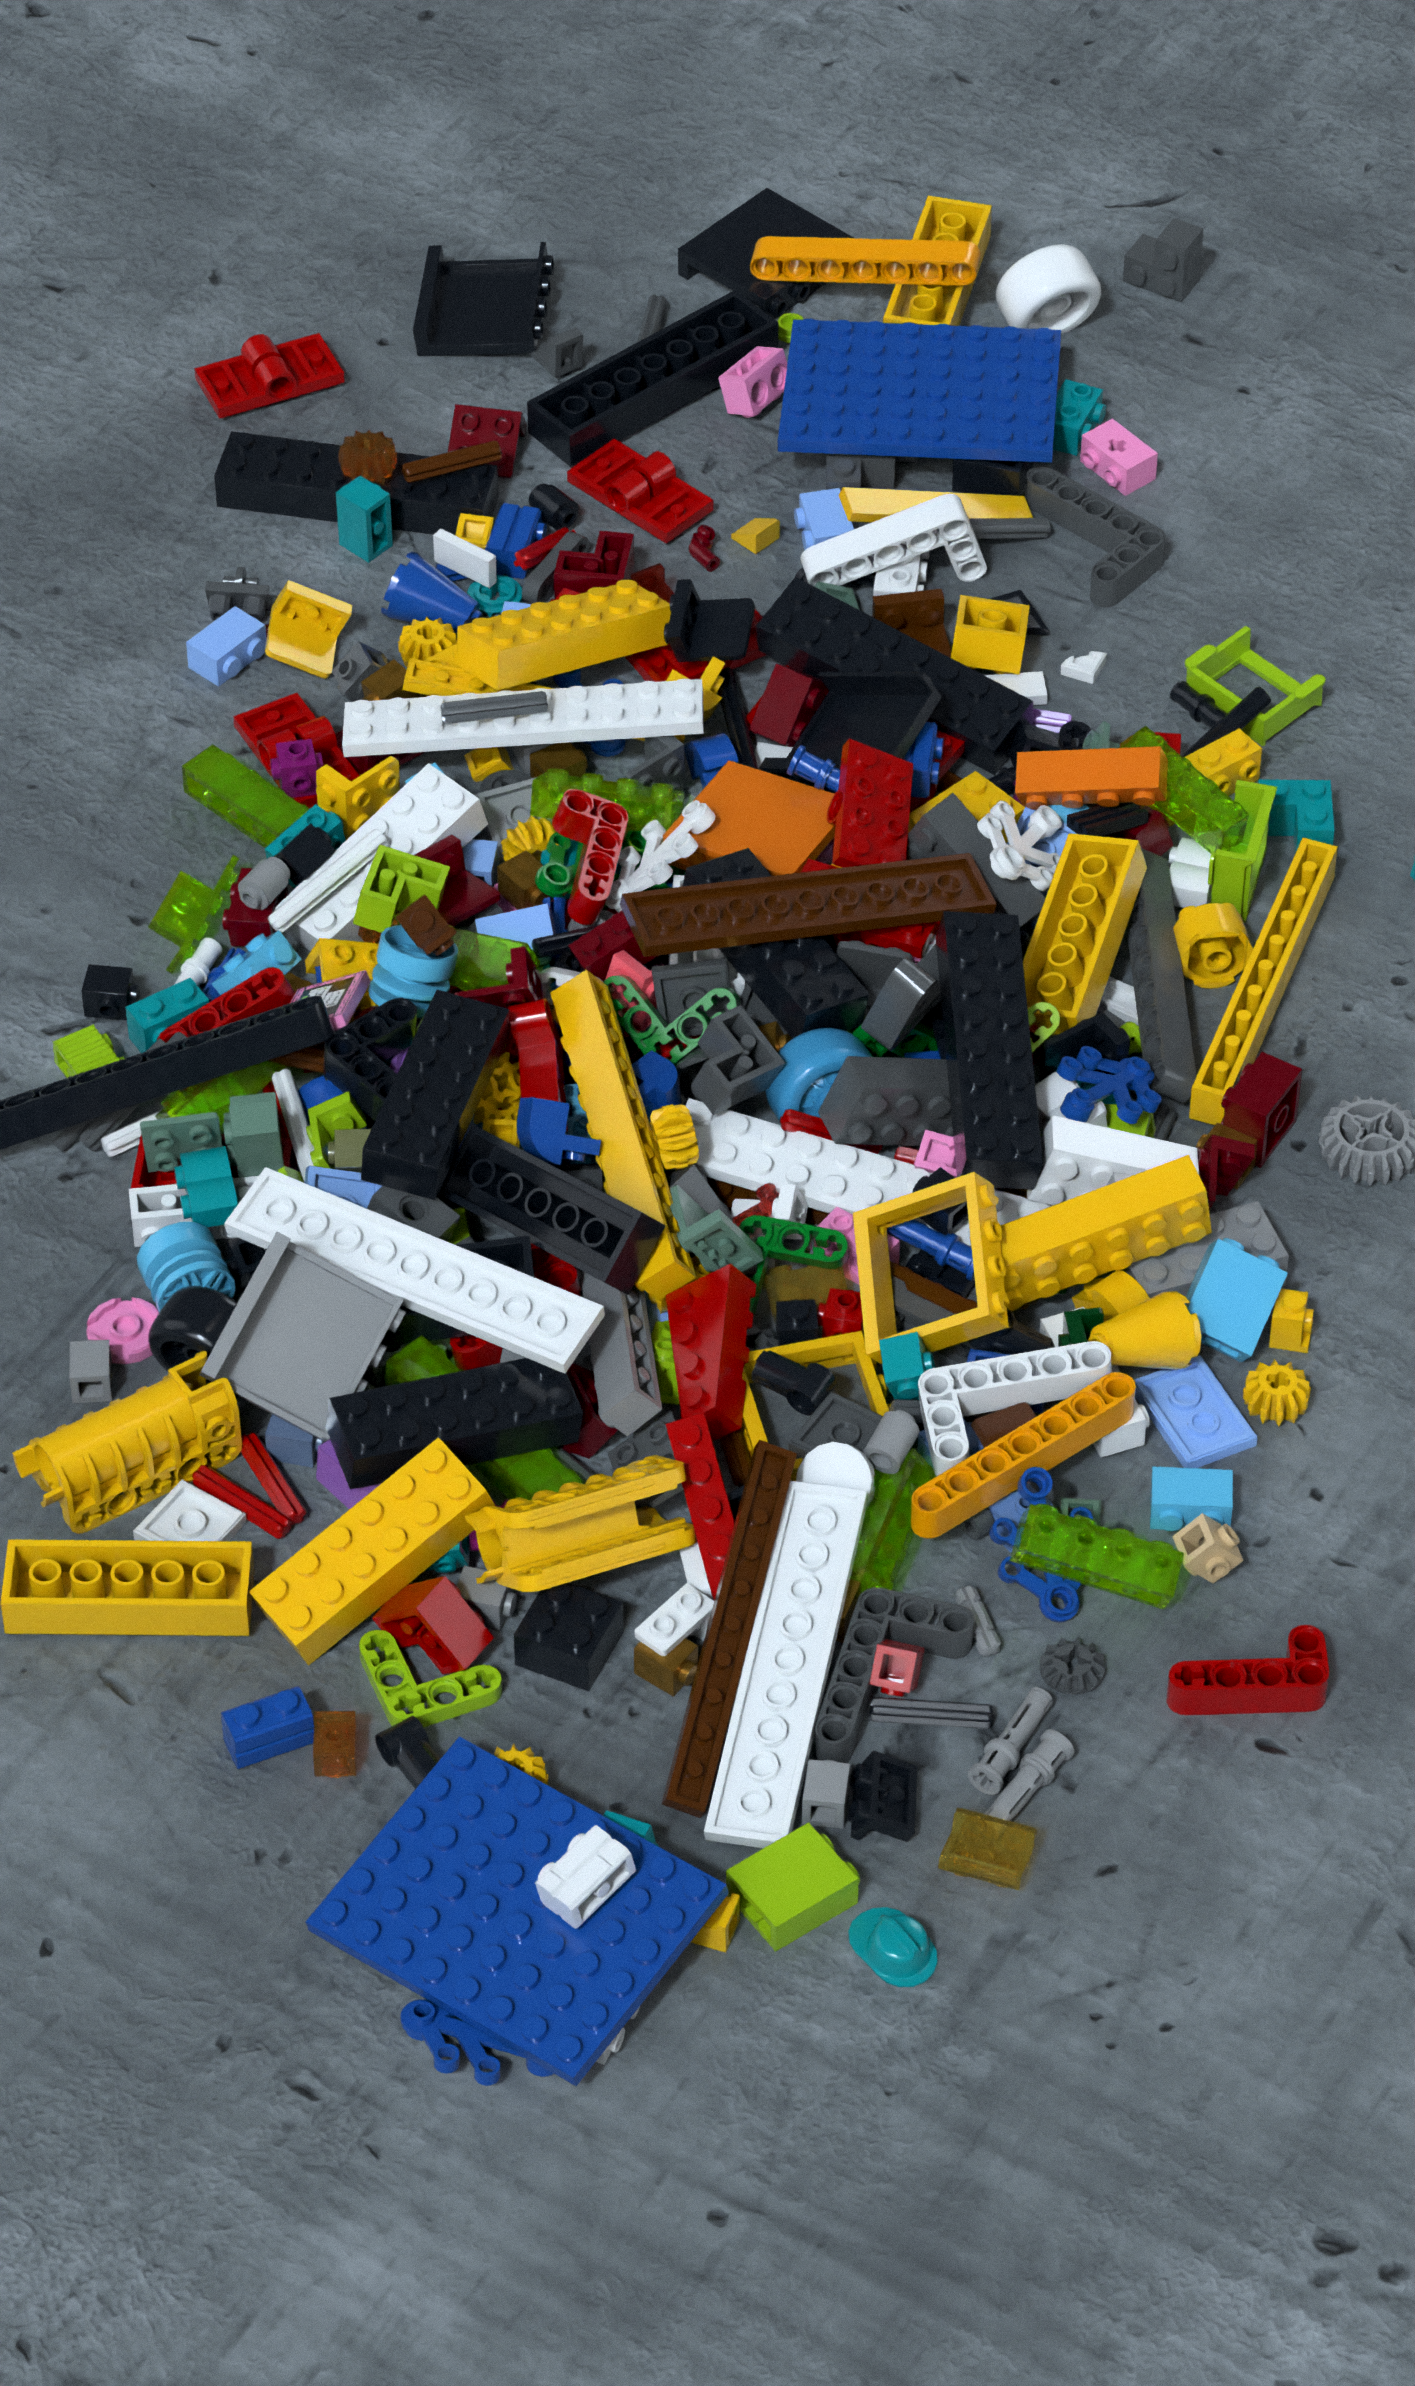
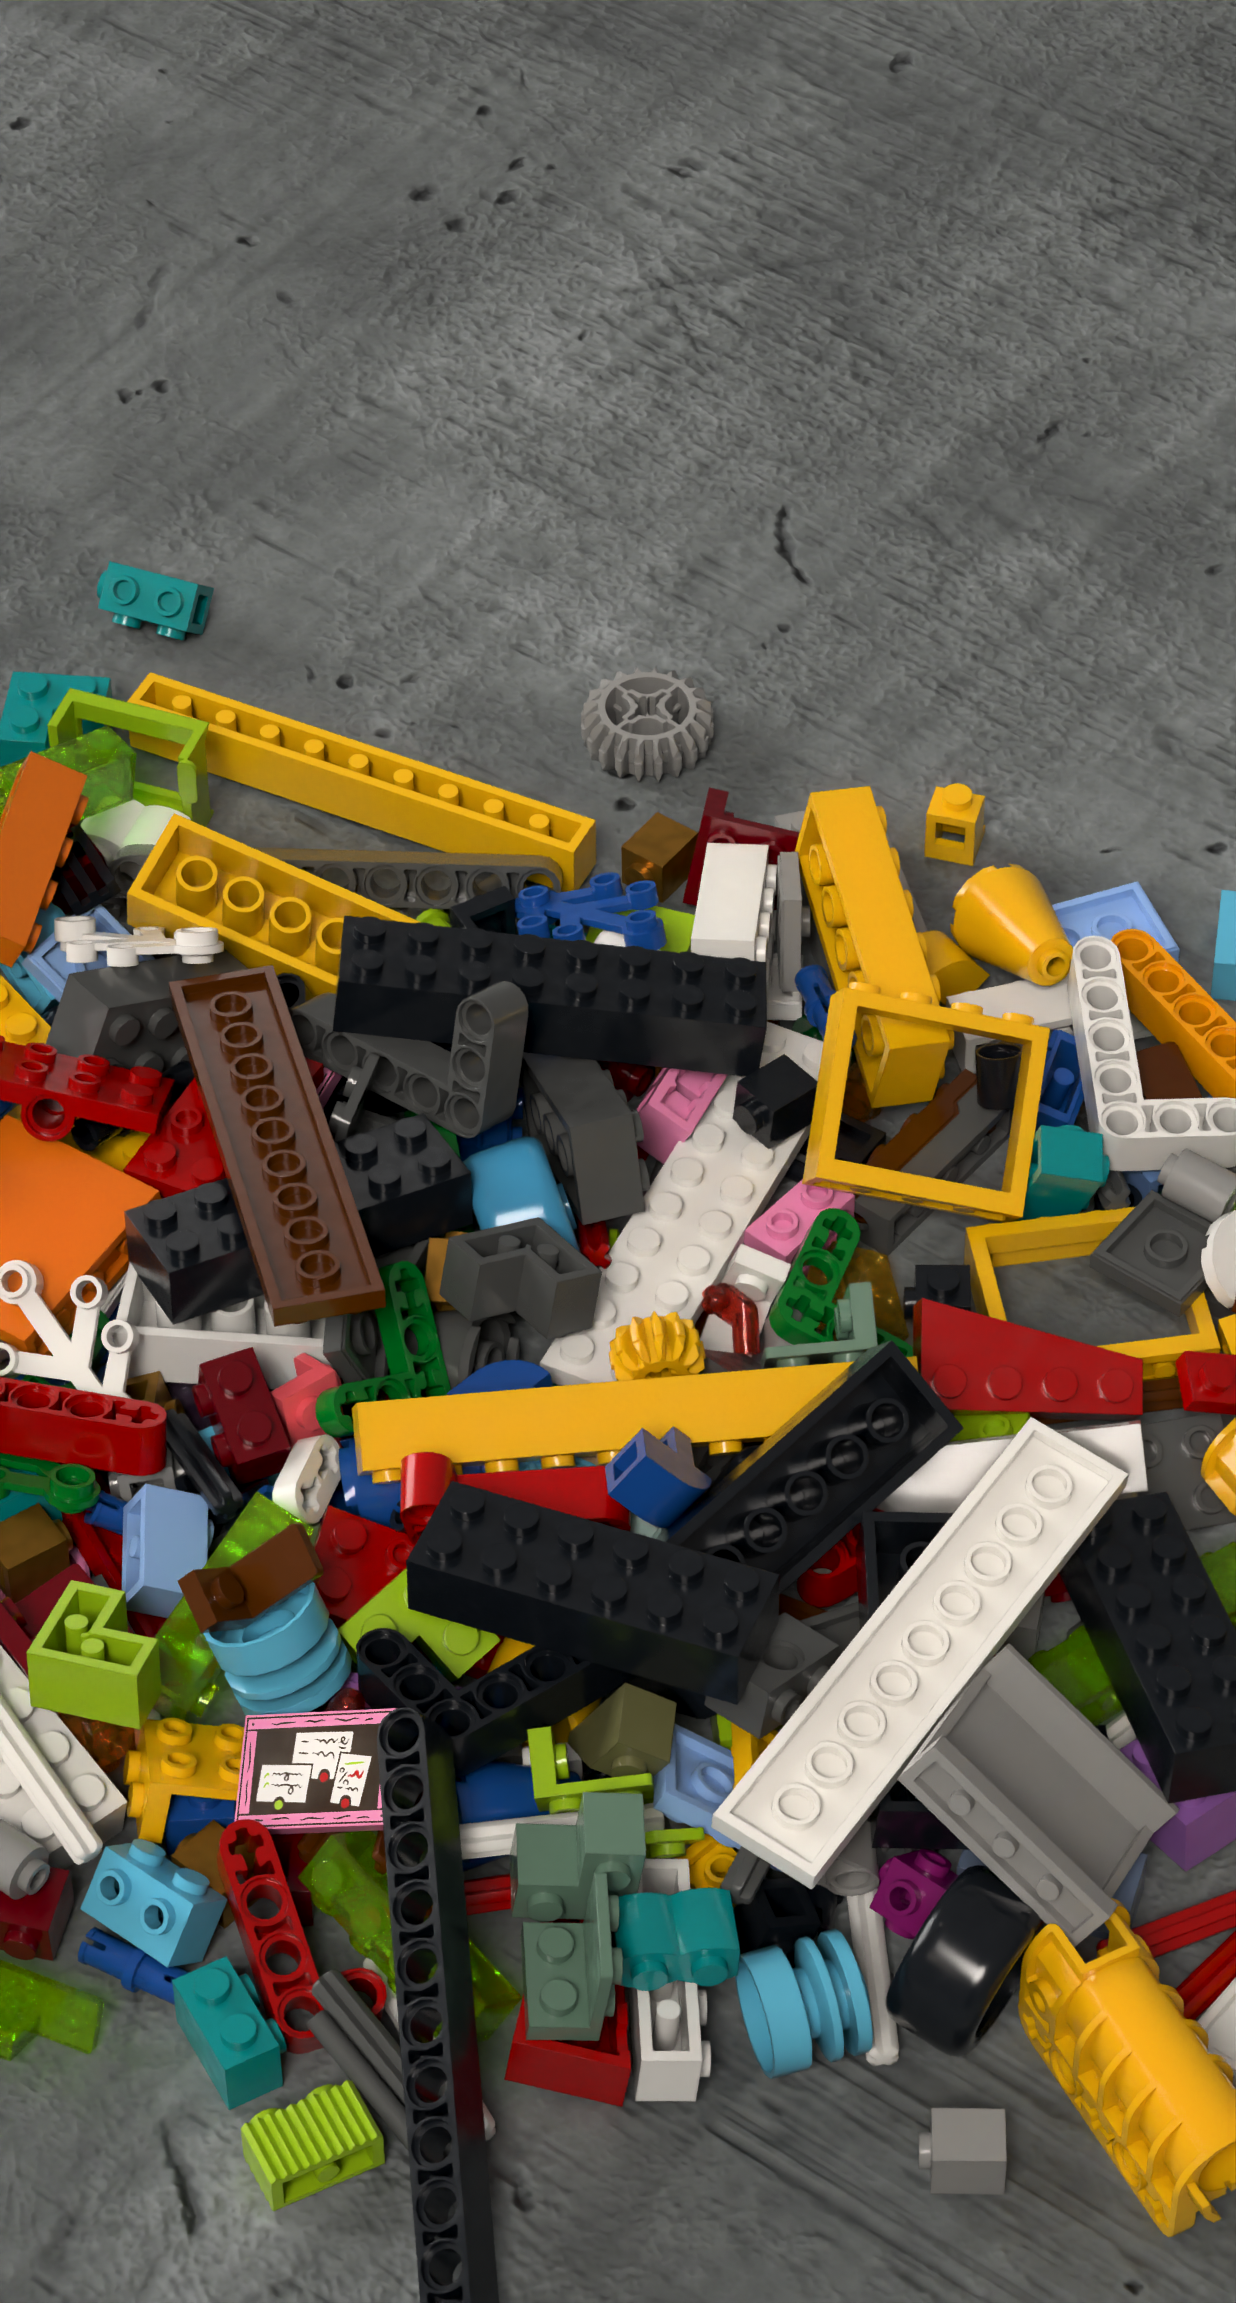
camera: 85 degrees left, 0 degrees up
(108, 991) = (150, 2119): black brick -> none
(125, 1326) = (867, 2116): bright pink tile -> none
(200, 963) = (122, 2003): white pin -> none
(523, 981) = (361, 1495): dark red bracket -> none
(801, 1385) = (1075, 1285): black piece -> none
(840, 1313) = (924, 1241): red brick -> none
(945, 1248) = (787, 1168): blue pin -> none
(1079, 1324) = (1026, 991): dark green bracket -> none
(1212, 944) = (288, 810): yellow brick -> none
(1233, 1297) = (942, 846): medium azure brick -> none
(1264, 1103) = (605, 786): dark red brick -> none
(1276, 1392) = (1071, 852): yellow gear -> none

